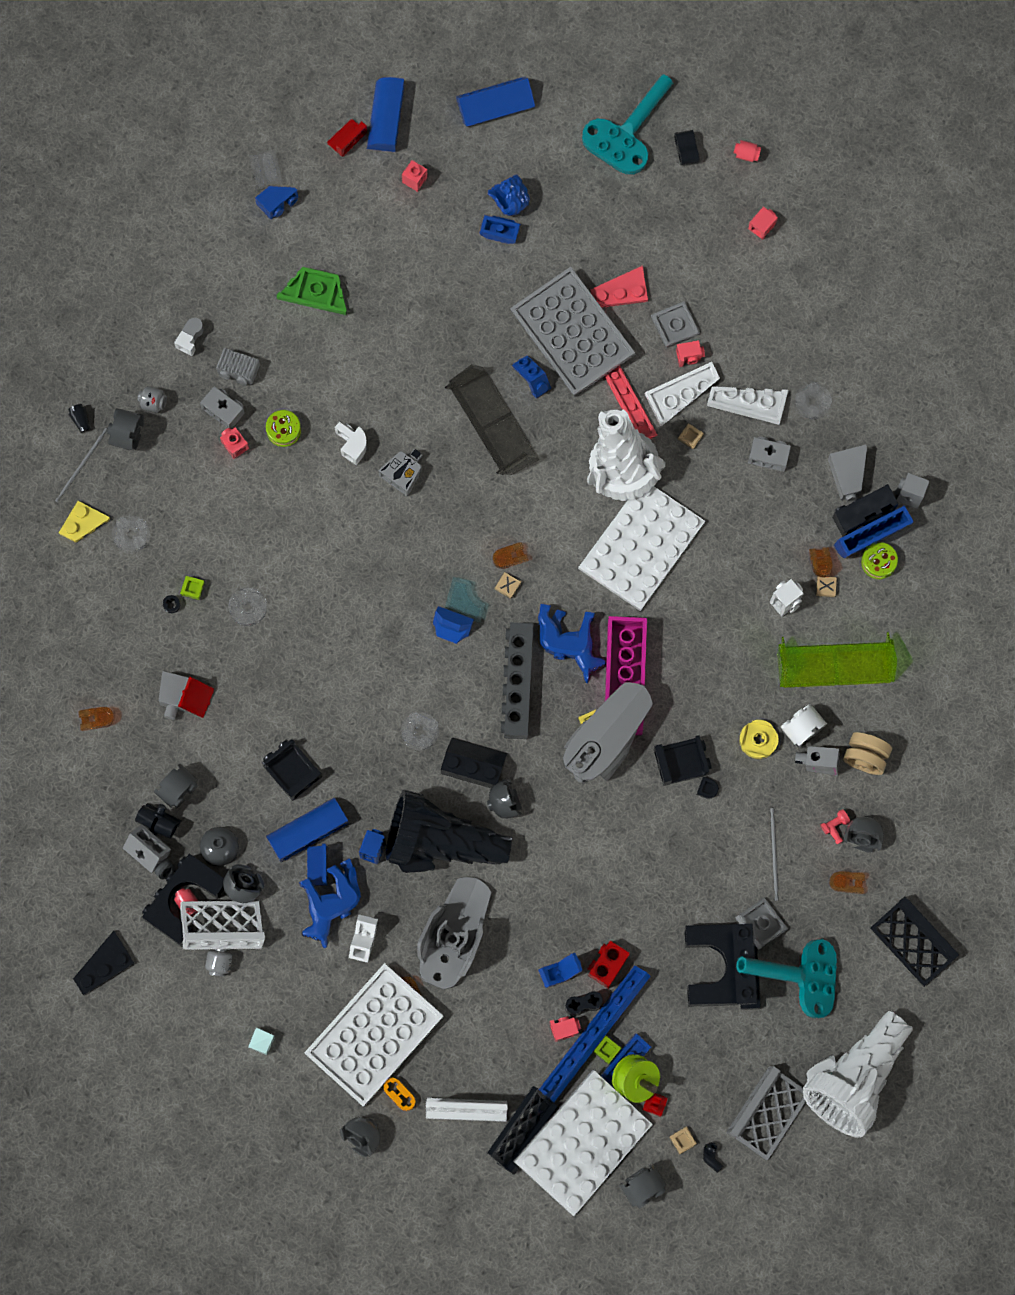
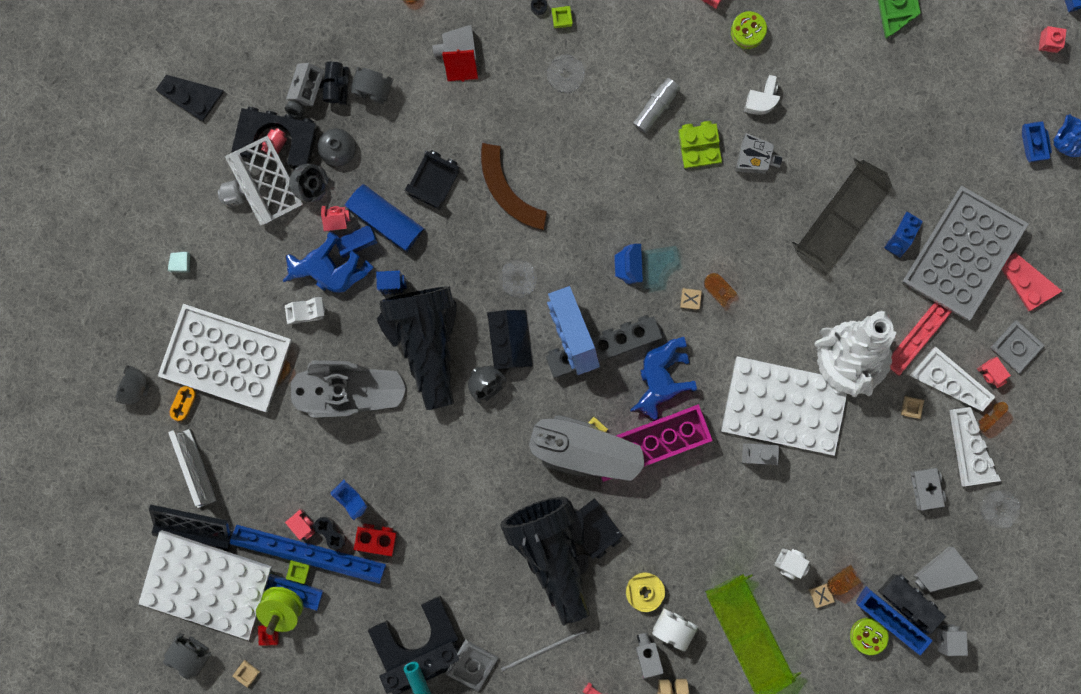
camera: 70 degrees right, 10 degrees up
(287, 874) = (334, 218): none -> coral brick
(315, 538) = (657, 105): none -> light grey piece
(332, 711) = (502, 192): none -> reddish brown tile
(369, 516) = (699, 144): none -> lime plate
(493, 696) = (572, 331): none -> medium blue brick
(672, 801) = (546, 539): none -> black cone
(677, 582) = (760, 454): none -> light grey torso
(730, 378) = (987, 421): none -> clear orange plate

